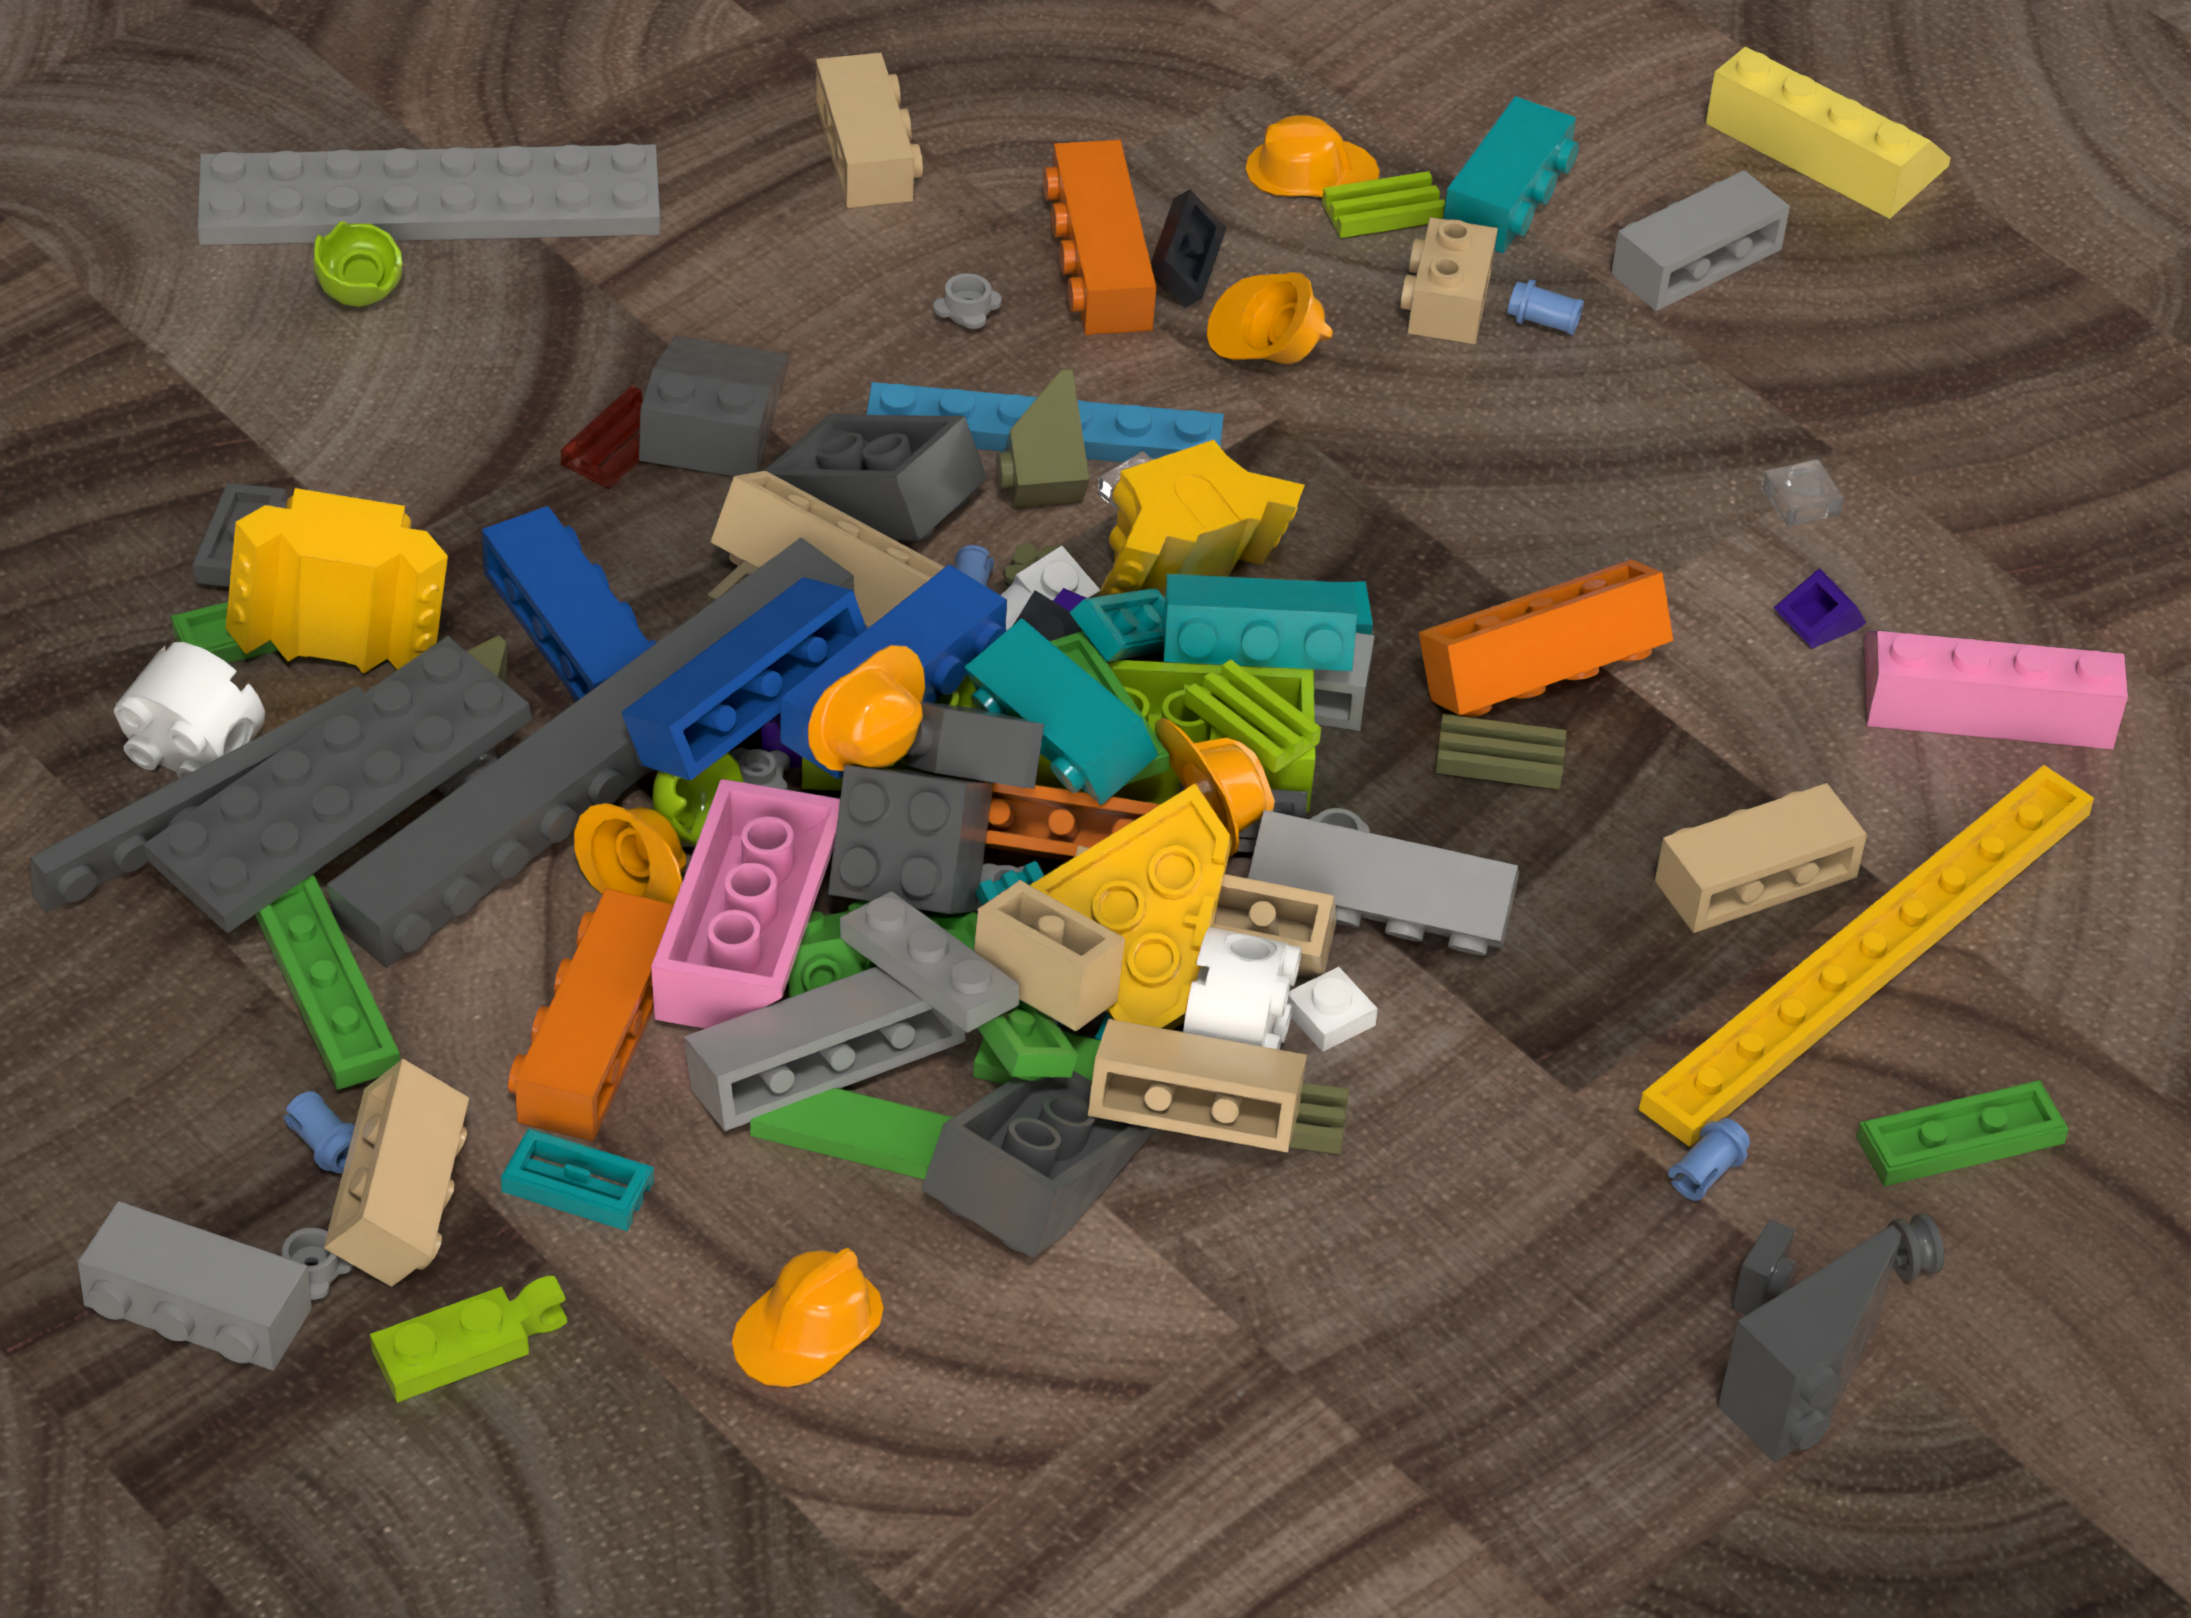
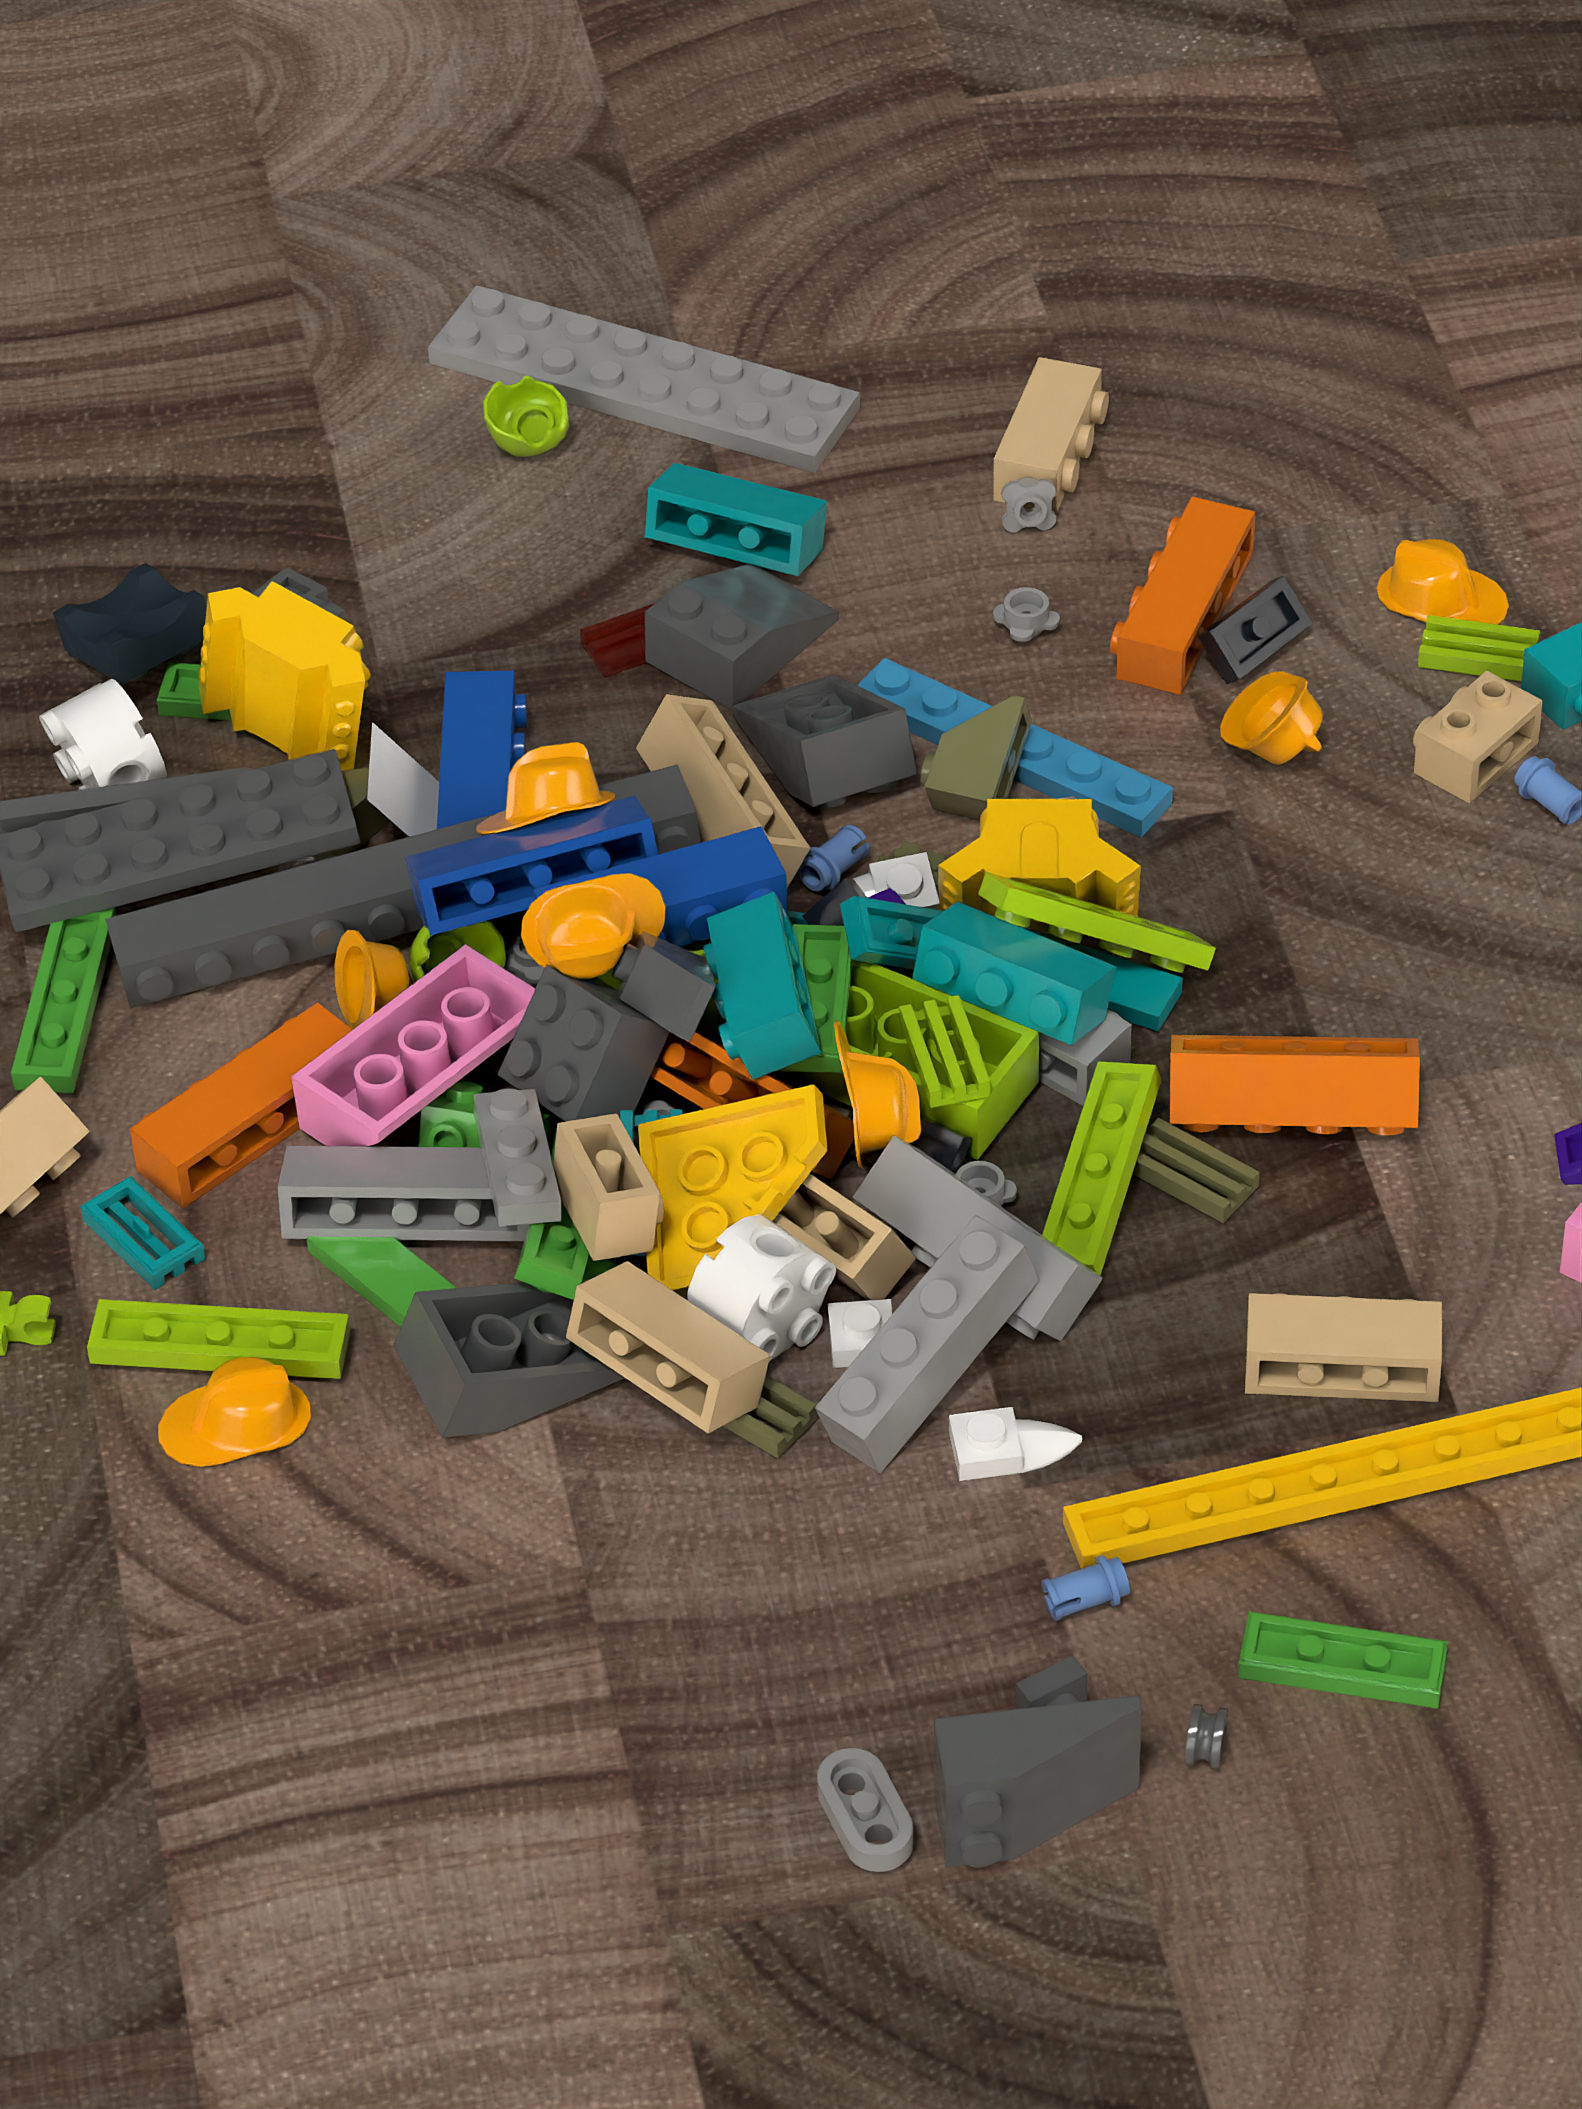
camera: 35 degrees right, 0 degrees up
(119, 589) = (133, 625): none -> black brick
(524, 657) = (401, 786): none -> white sticker
(638, 296) = (735, 519): none -> teal brick
(713, 601) = (546, 784): none -> light orange piece
(739, 1250) = (211, 1335): none -> lime plate
(895, 199) = (1027, 490): none -> light grey plate
(1267, 555) = (1117, 930): none -> lime plate
(1431, 990) = (927, 1343): none -> light grey brick
(1433, 762) = (1102, 1160): none -> lime plate
(1529, 1062) = (998, 1445): none -> white plate
(1682, 1440) = (867, 1815): none -> light grey plate

